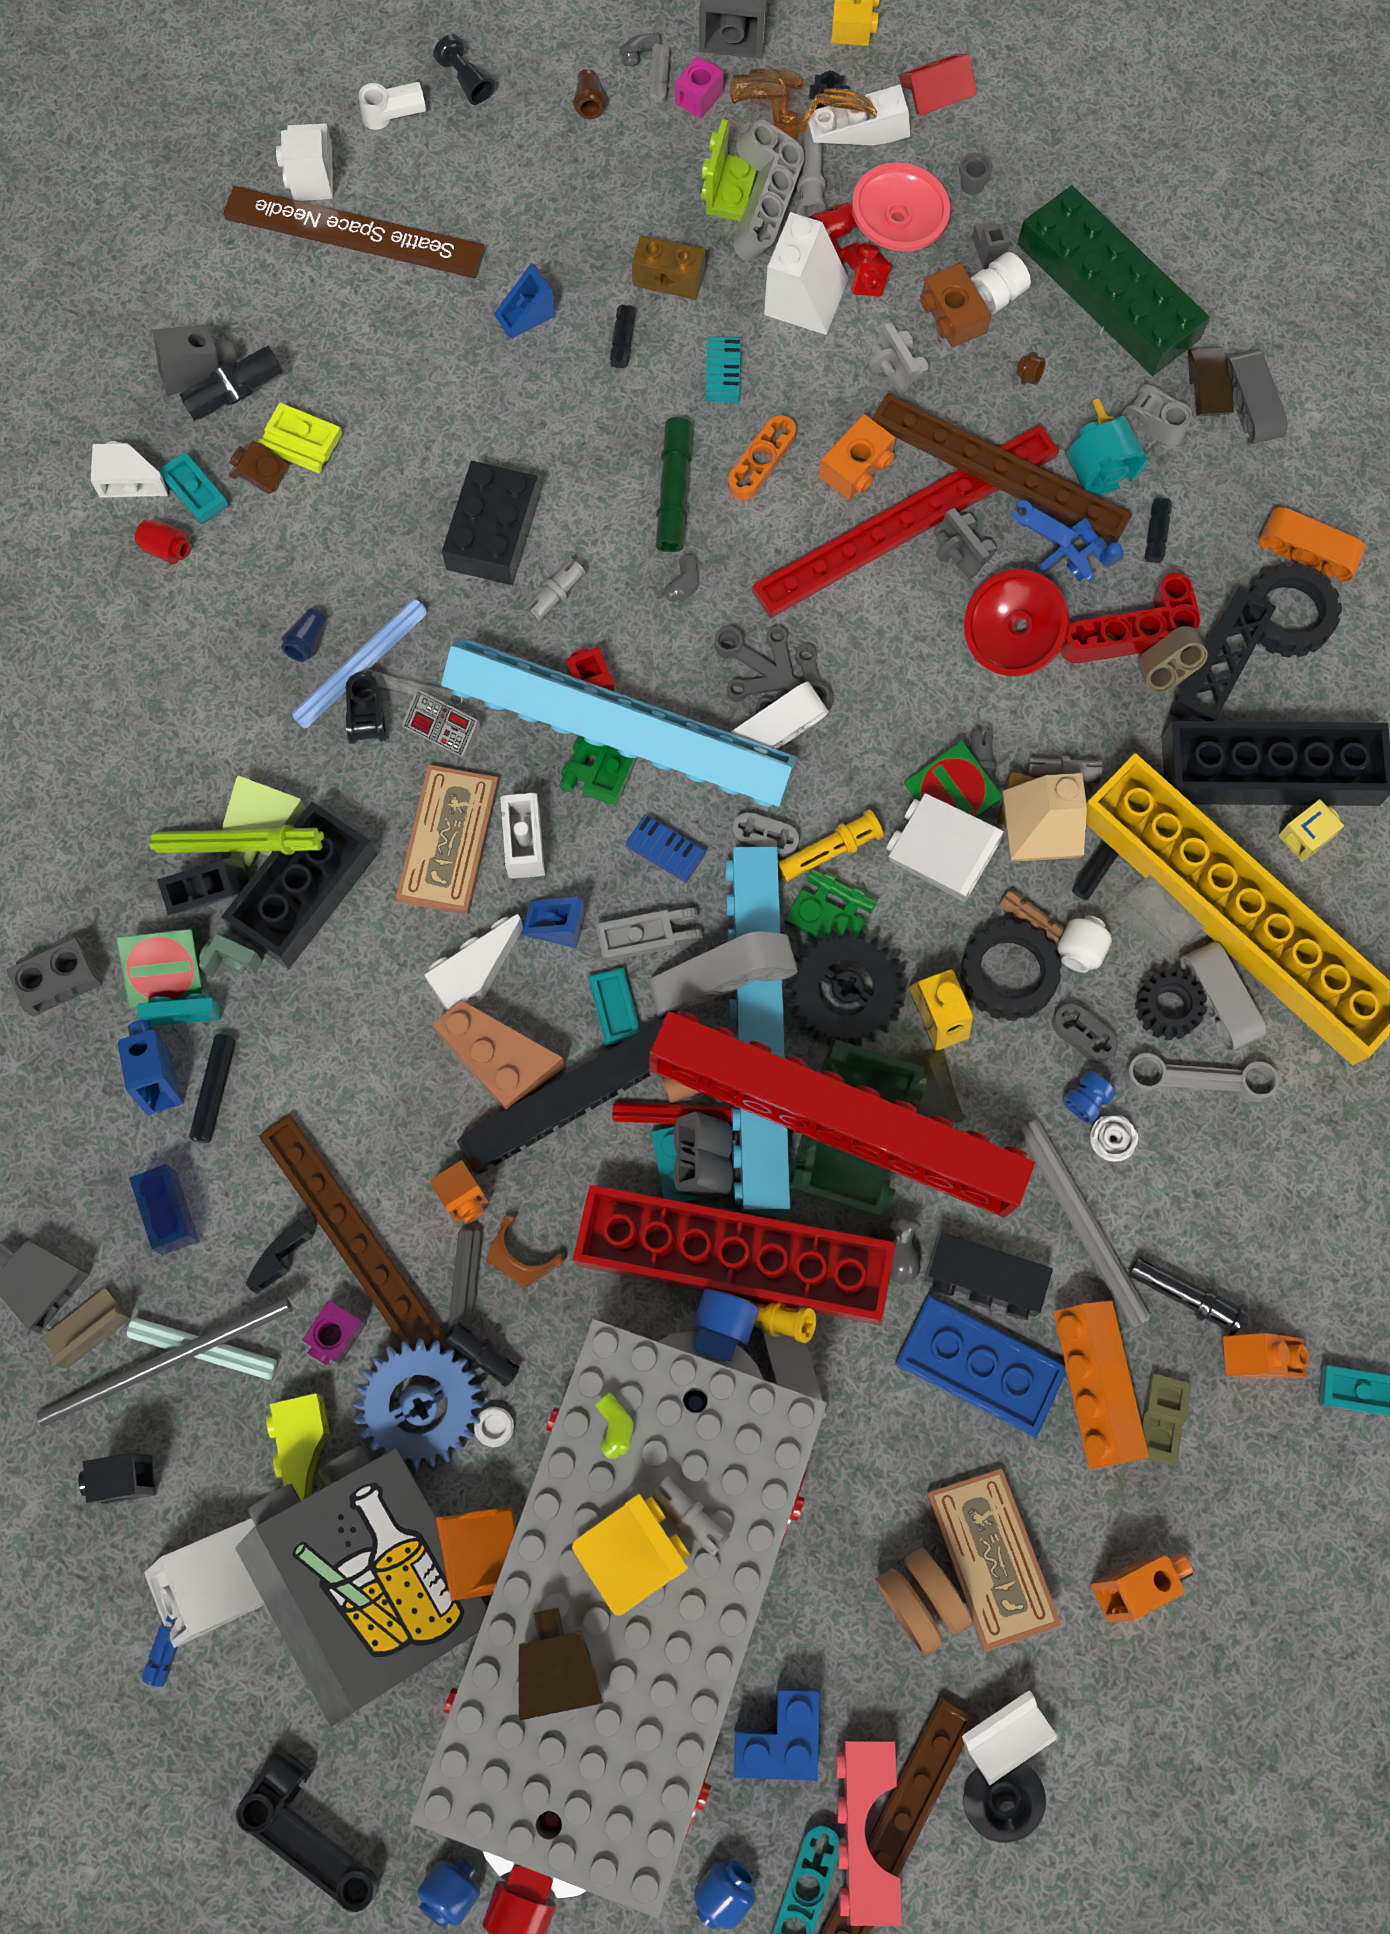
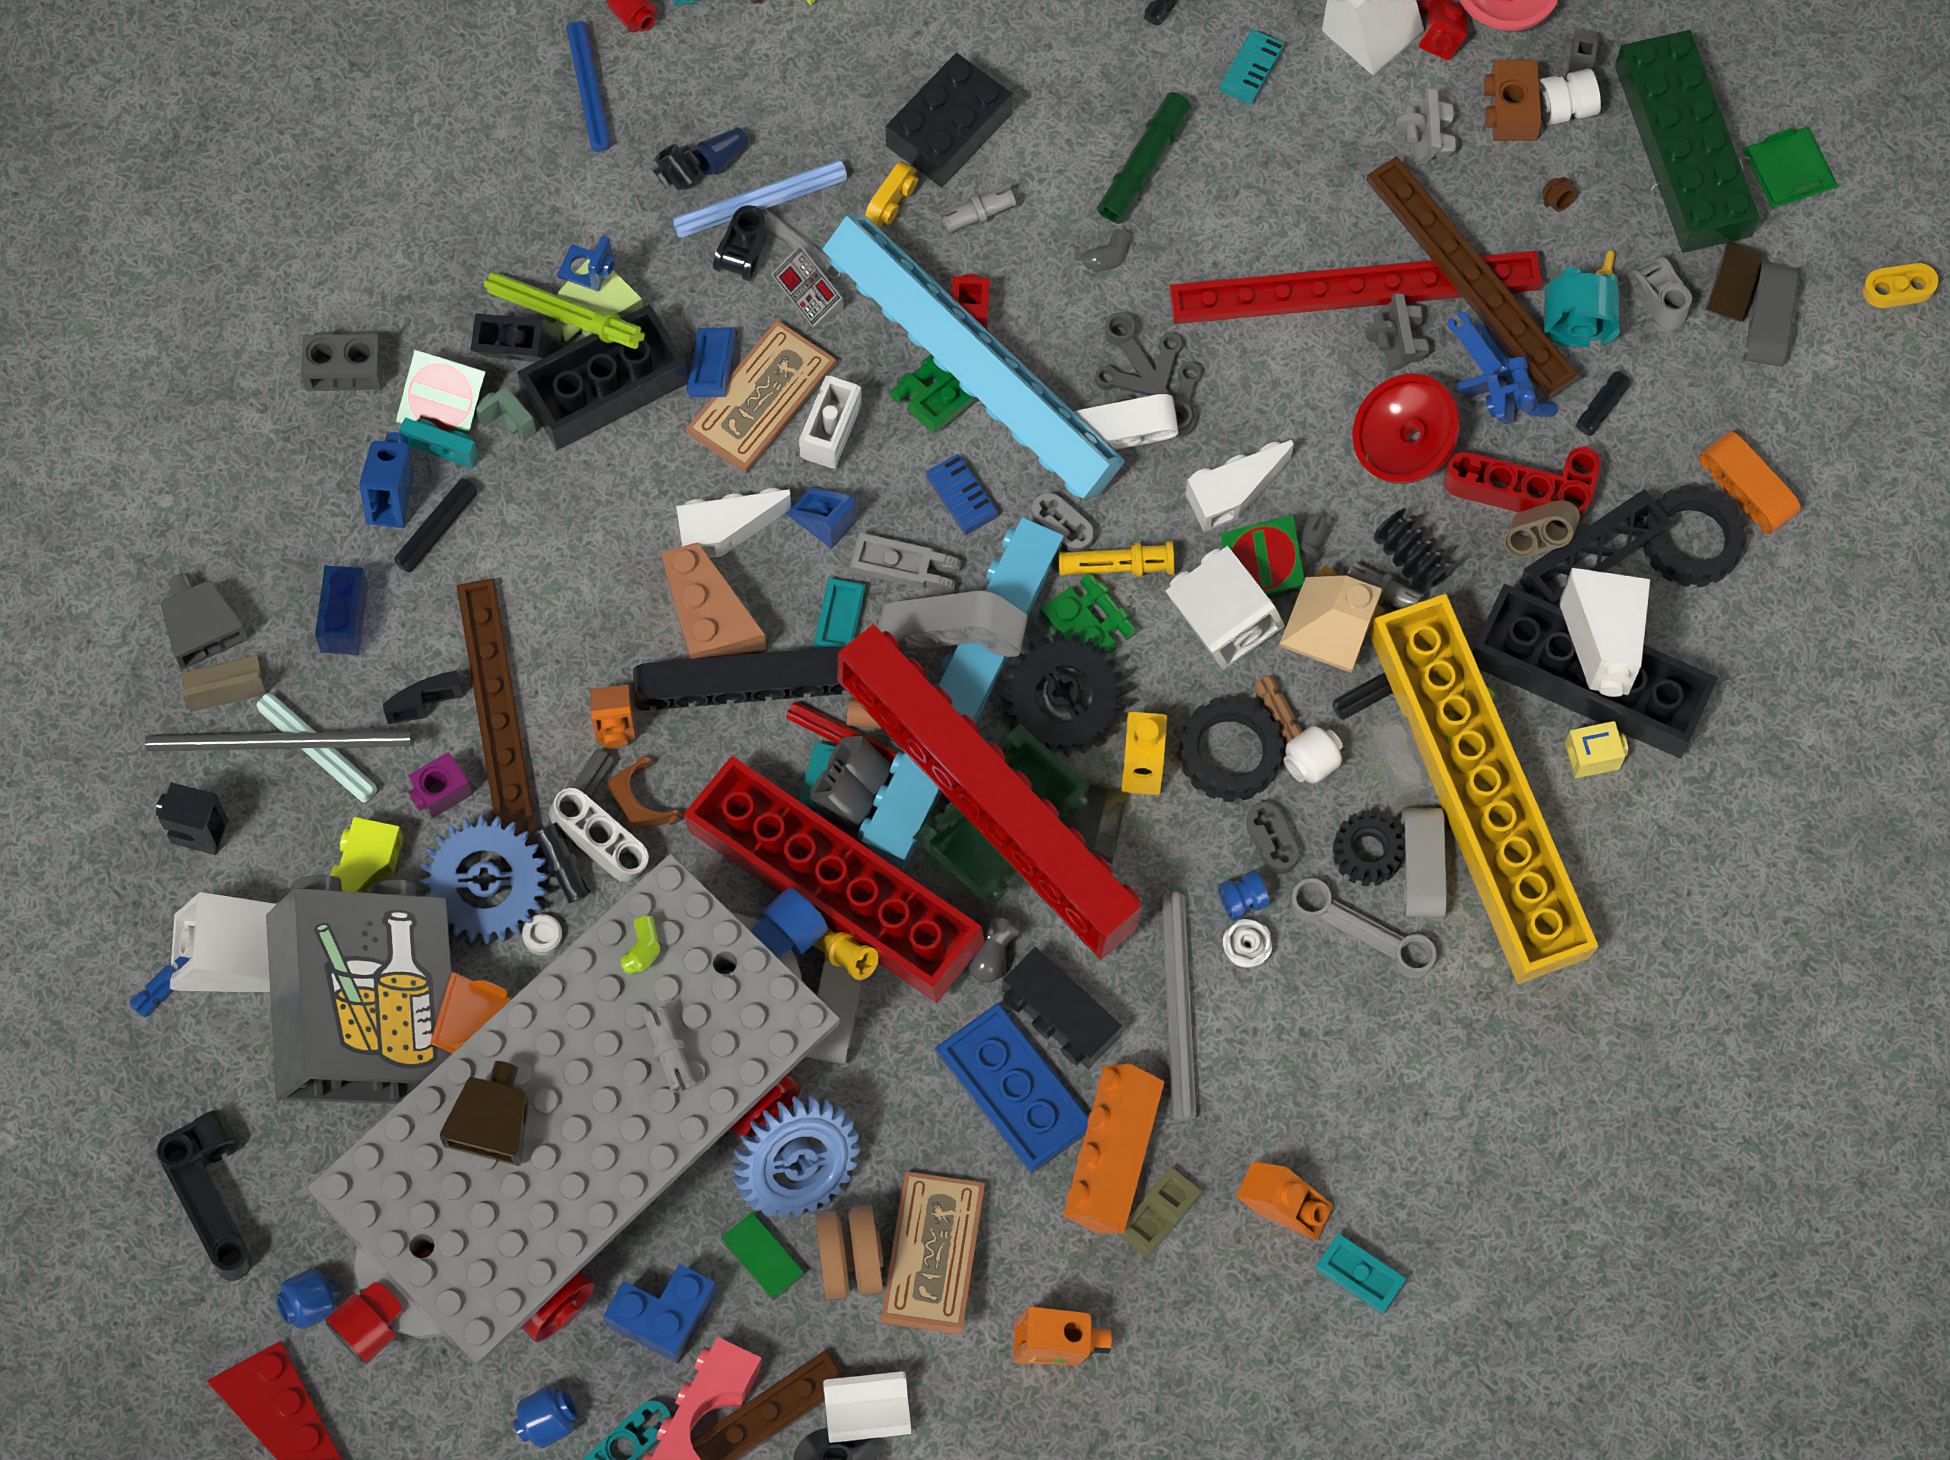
camera: 25 degrees right, 5 degrees down
(158, 628) = (588, 86): none -> blue axle
(251, 787) = (599, 267): none -> blue bracket
(272, 666) = (676, 166): none -> black gear
(389, 828) = (711, 362): none -> blue tile
(476, 596) = (884, 203): none -> yellow plate
(521, 1309) = (591, 816): none -> white beam
(630, 1554) = (602, 1055): yellow bracket -> none
(761, 443) = (1249, 154): orange beam -> none
(829, 1537) = (782, 1148): none -> medium blue gear
(841, 1635) = (762, 1256): none -> green tile
(863, 441) = (1348, 191): orange brick -> none
(891, 745) = (1229, 490): none -> white slope
(1075, 726) = (1412, 551): none -> black piece
(1201, 268) = (1790, 166): none -> green piece
(1204, 1303) = (1253, 1127): black pin -> none
(1290, 722) = (1606, 626): none -> white slope
(1339, 330) = (1897, 283): none -> yellow plate

